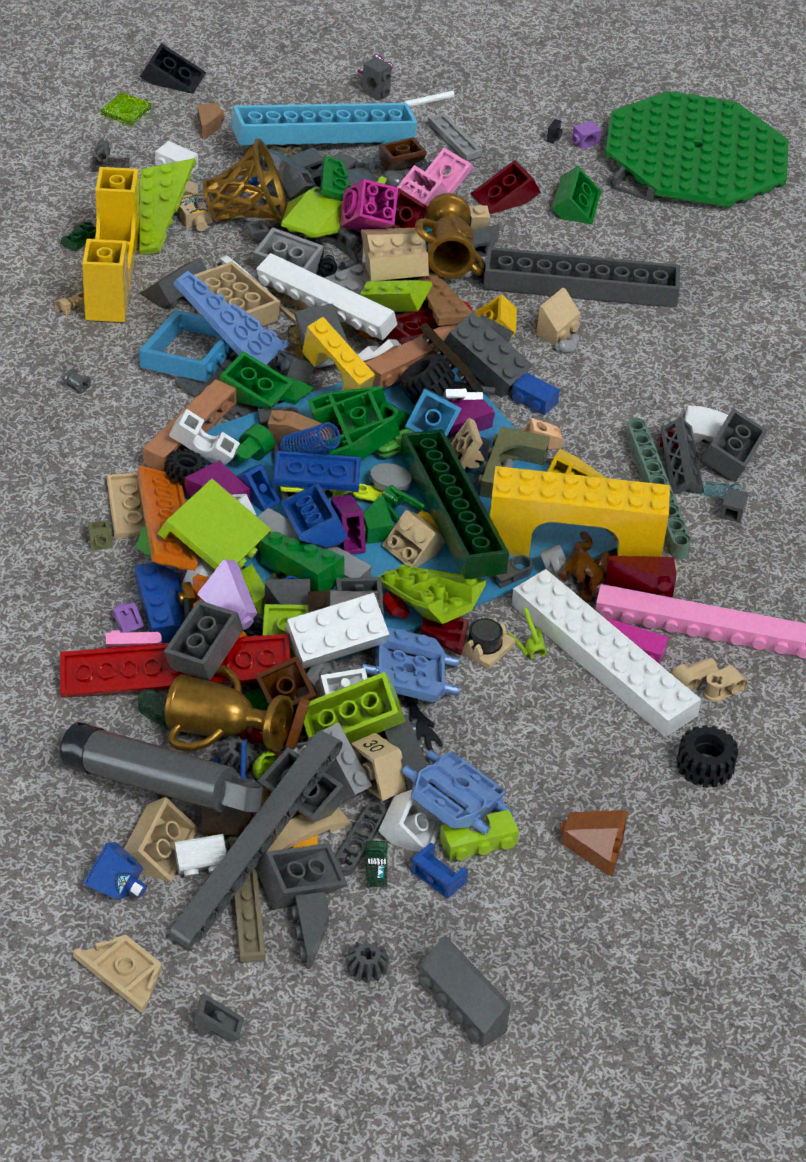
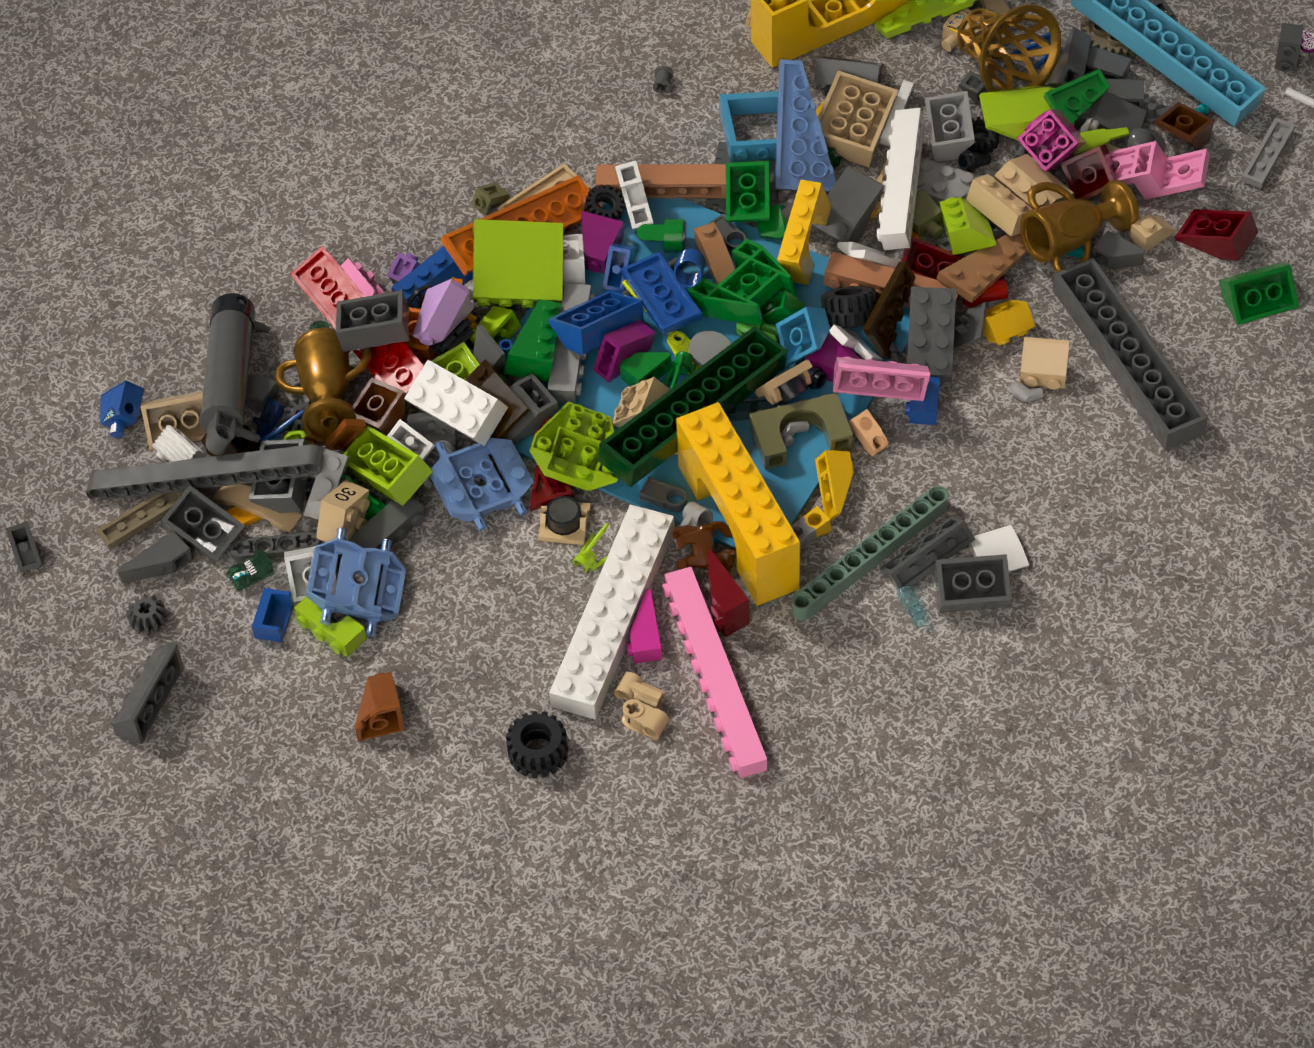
camera: 65 degrees right, 10 degrees up
(123, 968) = (40, 467): tan wing -> none
(423, 724) = (428, 529): black piece -> none
(514, 392) = (880, 378): none -> bright pink slope
(734, 505) = (895, 623): dark grey brick -> none

